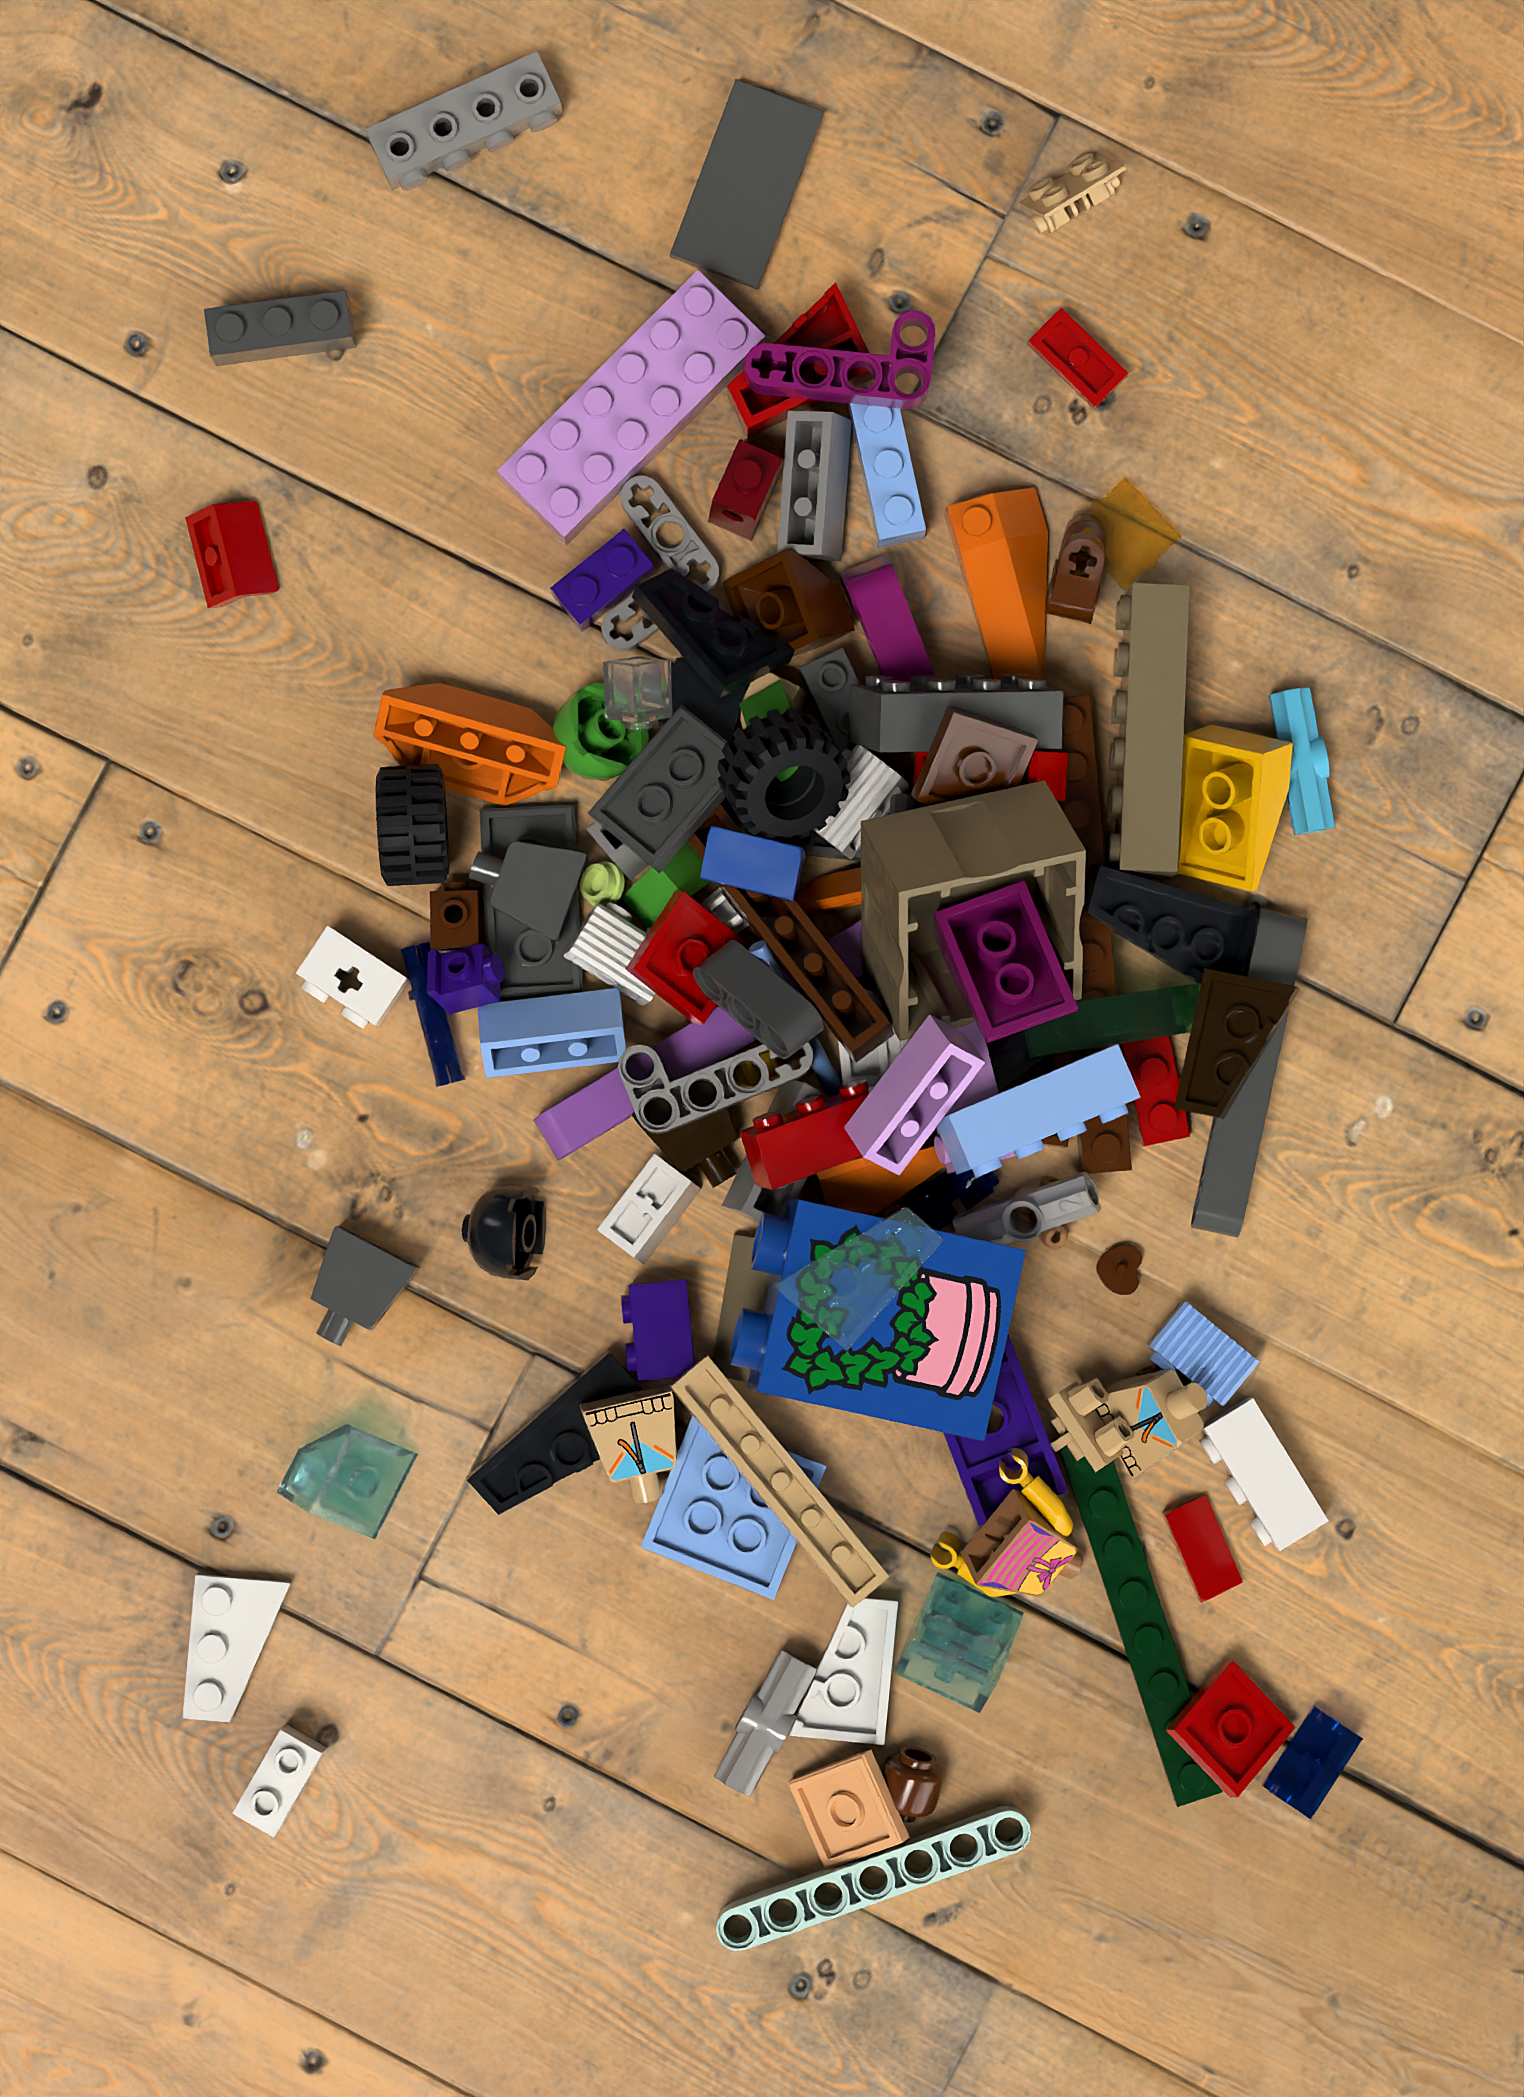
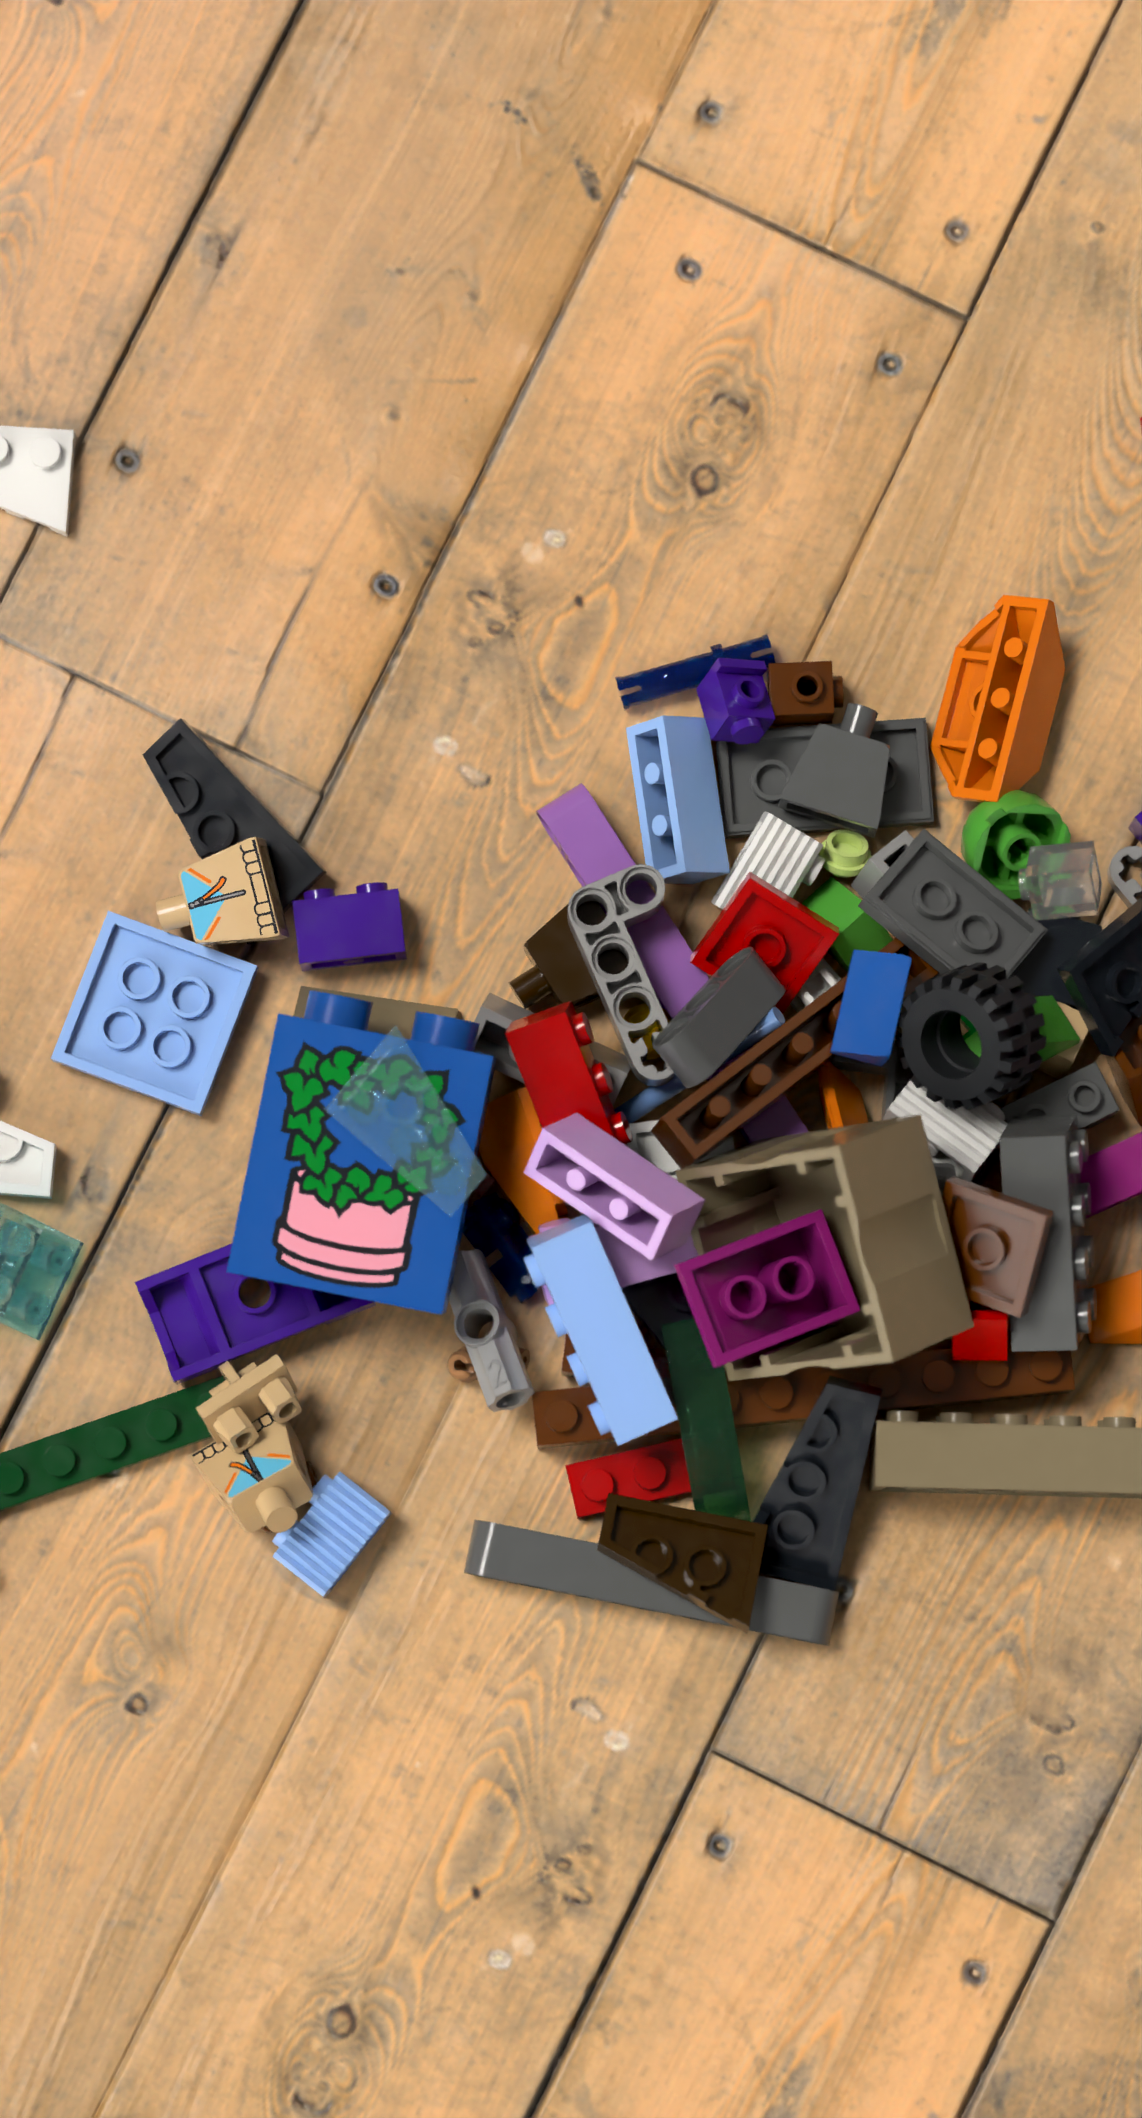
camera: 90 degrees right, 5 degrees down
(337, 954) = (729, 612): white brick -> none
(348, 1478) = (180, 591): clear light blue slope -> none
(357, 1284) = (395, 596): dark grey torso -> none
(412, 825) = (904, 638): black tyre -> none
(506, 1231) = (455, 756): black cylinder -> none
(649, 1209) = (483, 912): white hinge -> none
(779, 1481) = (181, 1058): tan plate -> none
(1021, 1542) = (115, 1329): torso -> none
(1118, 1269) = (426, 1440): reddish brown piece -> none
(1202, 1548) = (112, 1539): red slope -> none
(1230, 804) = (956, 1551): yellow slope -> none
(1262, 1475) = (195, 1604): white brick -> none
(1308, 789) = (1008, 1637): medium azure piece -> none

